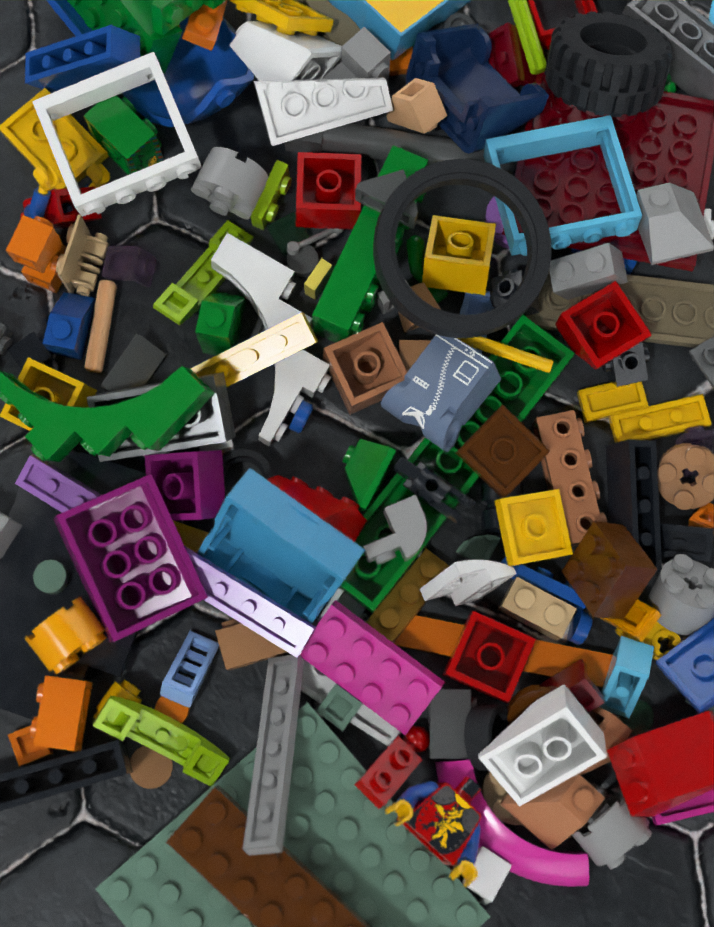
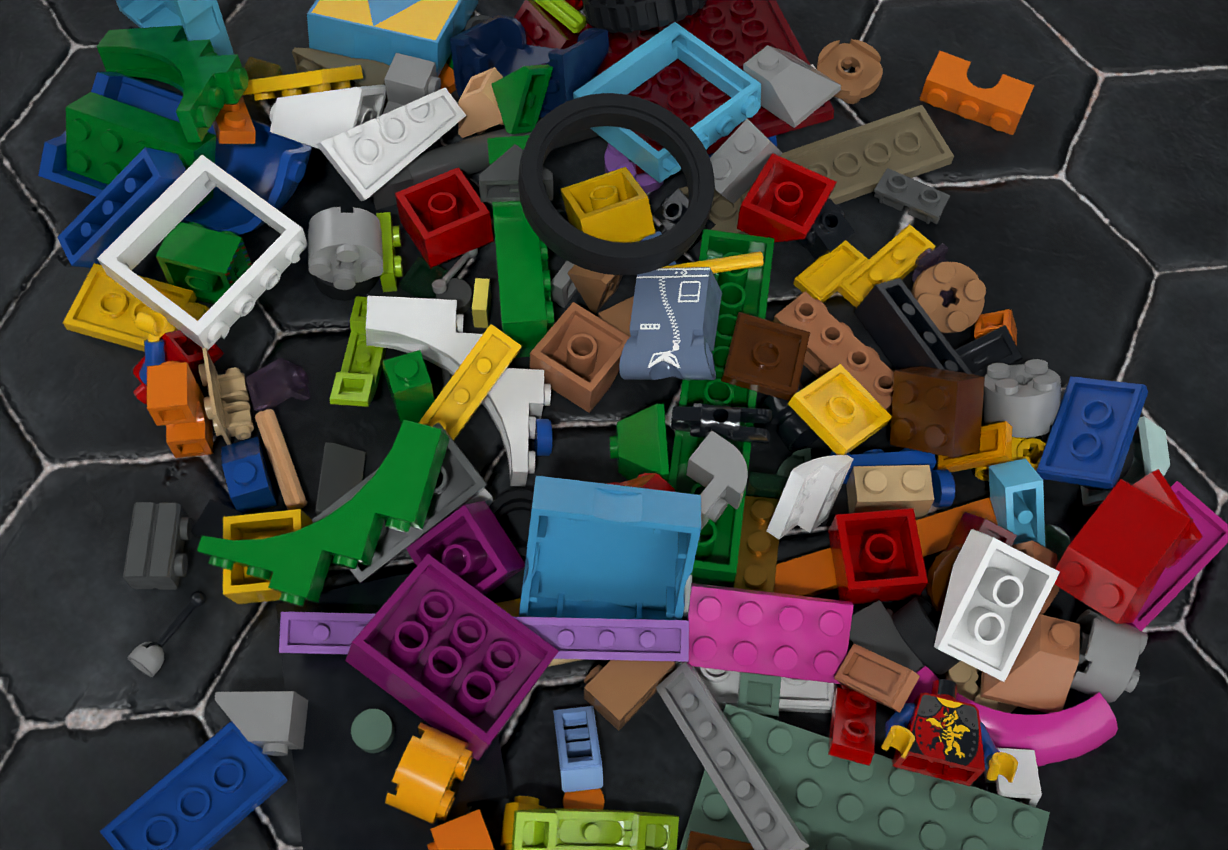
camera: 30 degrees left, 15 degrees down
(424, 750) = (877, 677): none -> nougat tile
(441, 123) = (522, 96): none -> green slope
(444, 551) = (765, 485): none -> clear green tile

